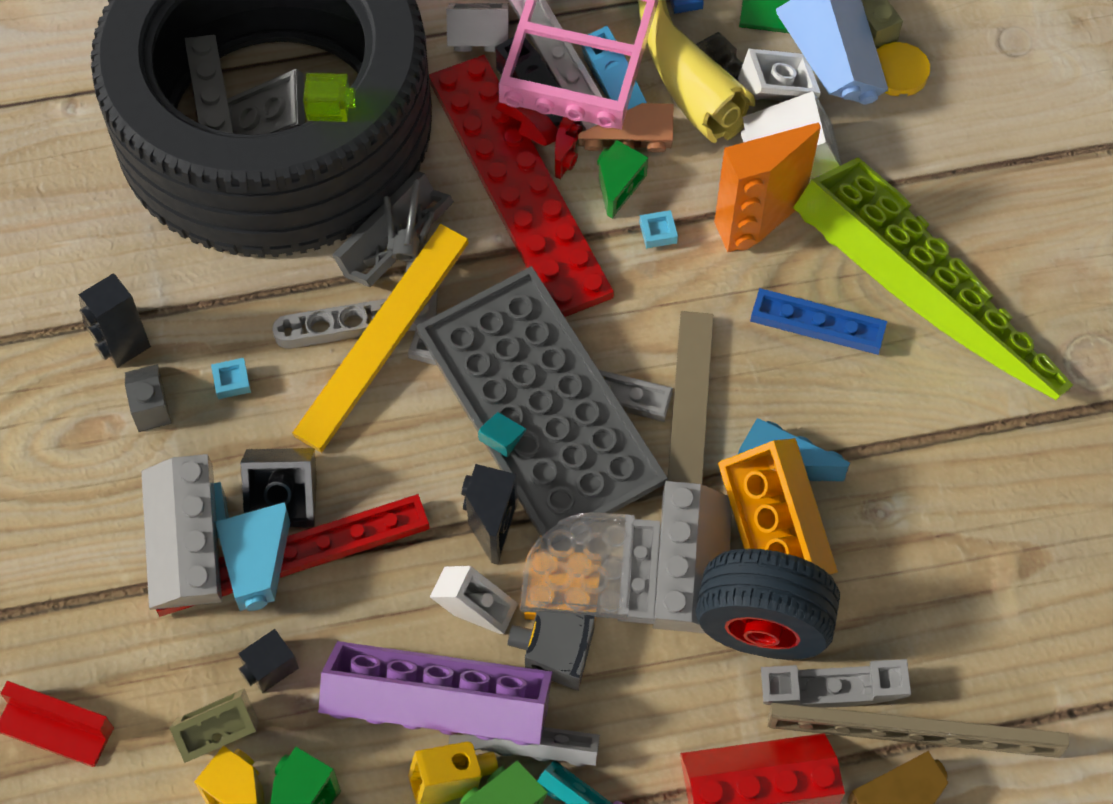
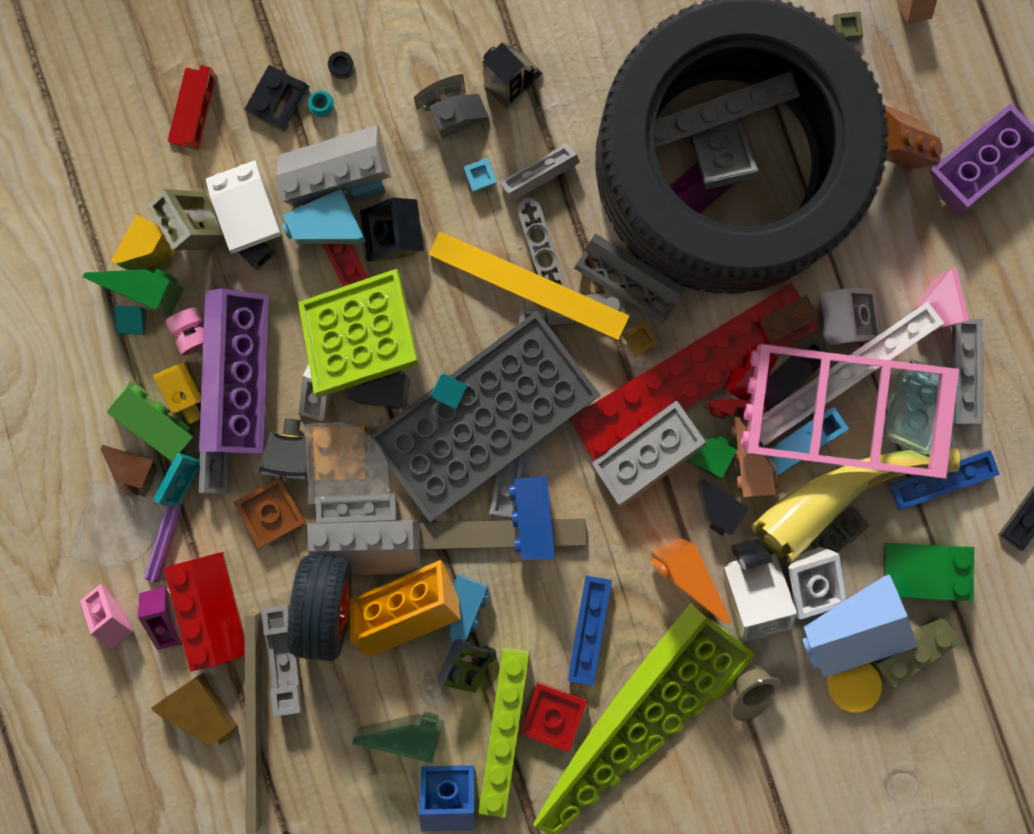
camera: 80 degrees right, 25 degrees up
(45, 529) = (341, 65): none -> black tile
(63, 623) = (269, 95): none -> black plate
(89, 549) = (319, 96): none -> teal plate
(113, 410) = (431, 94): none -> clear smoke slope
(211, 655) = (243, 206): none -> white slope
(242, 312) = (539, 172): none -> light grey plate
(328, 97) = (687, 204): clear neon green brick -> none
(369, 755) = (183, 324): none -> bright pink wheel
(406, 244) = (610, 292): dark grey plant -> none
(410, 521) = (358, 333): none -> lime plate
(470, 226) = (640, 338): none -> pearl gold plate
(471, 76) = (788, 319): none -> reddish brown plate
(610, 227) = (649, 453): none -> light grey plate
(633, 680) = (269, 512): none -> dark orange plate
(658, 229) = (661, 494): medium azure plate -> none
(675, 350) = (532, 518): none -> blue slope
(682, 170) = (720, 508): none -> black slope
(742, 129) = (751, 553): none -> black slope
(861, 457) = (465, 674): none -> plate
(899, 159) = (754, 693): none -> dark tan piece
(923, 372) = (552, 716): none -> red plate
(939, 530) = (406, 736): none -> clear green slope
(941, 425) = (503, 732): none -> lime brick
(1024, 499) = (447, 798): none -> blue slope

